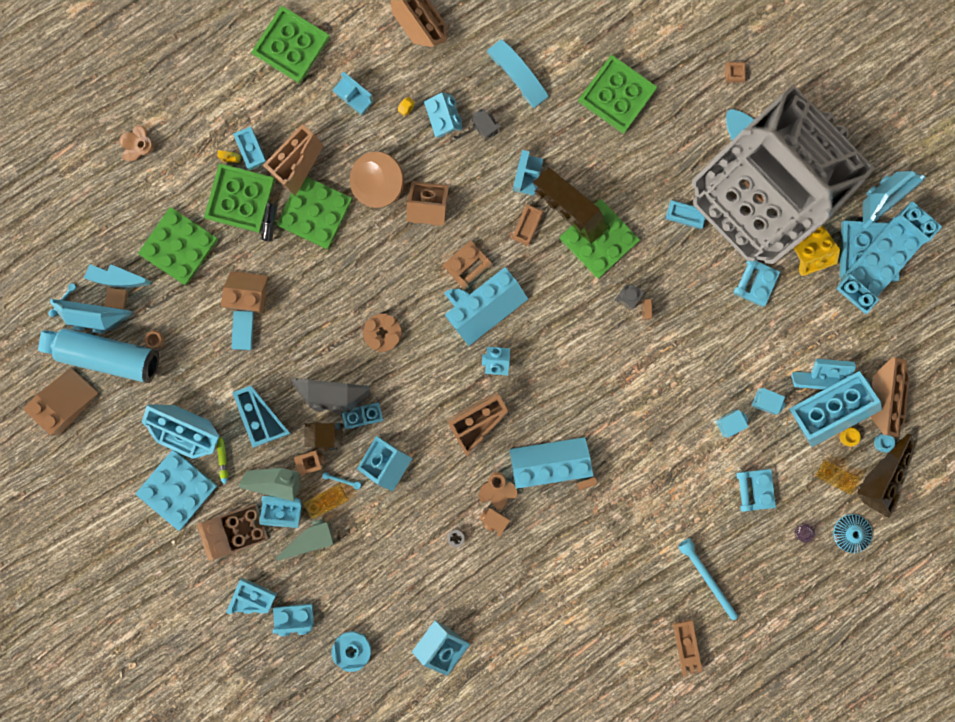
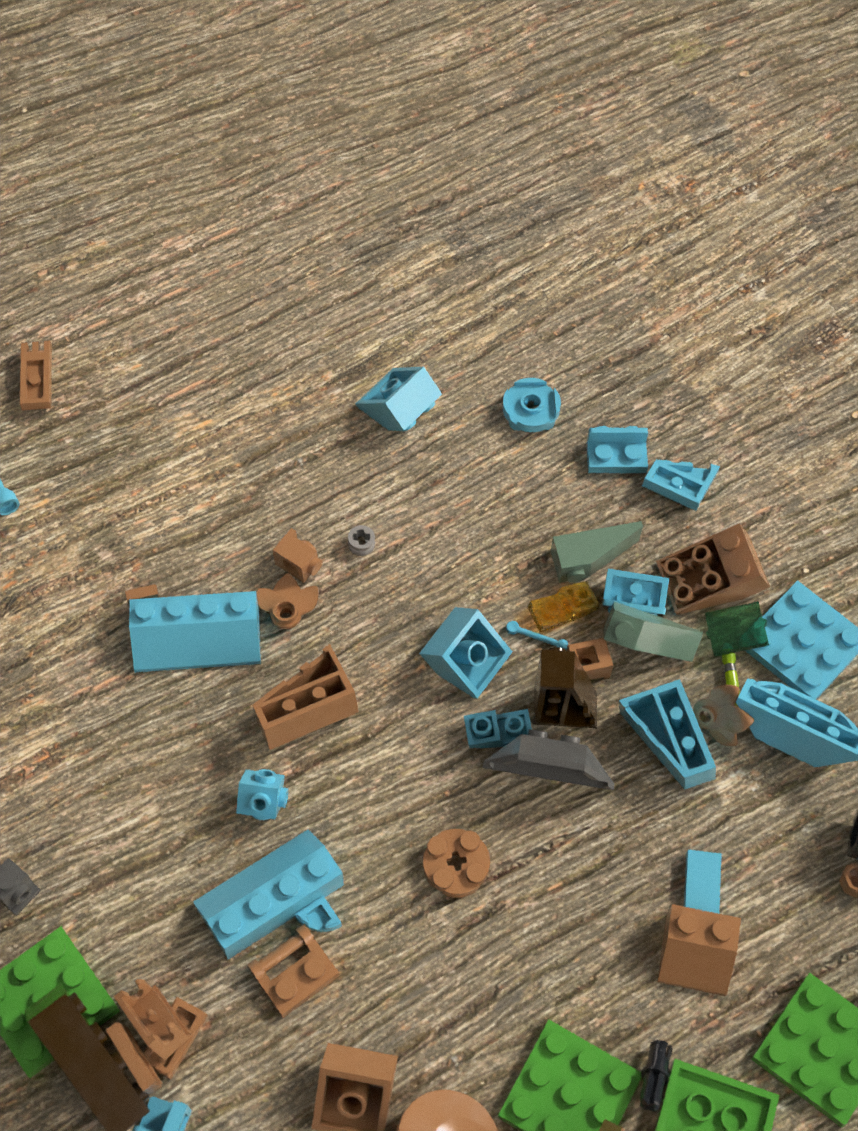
camera: 175 degrees left, 25 degrees down
(218, 492) = (736, 629): none -> clear green piece
(229, 431) = (725, 716): none -> medium nougat plate
(538, 229) = (154, 1019): none -> medium nougat hinge
(545, 208) = (134, 1058): none -> medium nougat tile

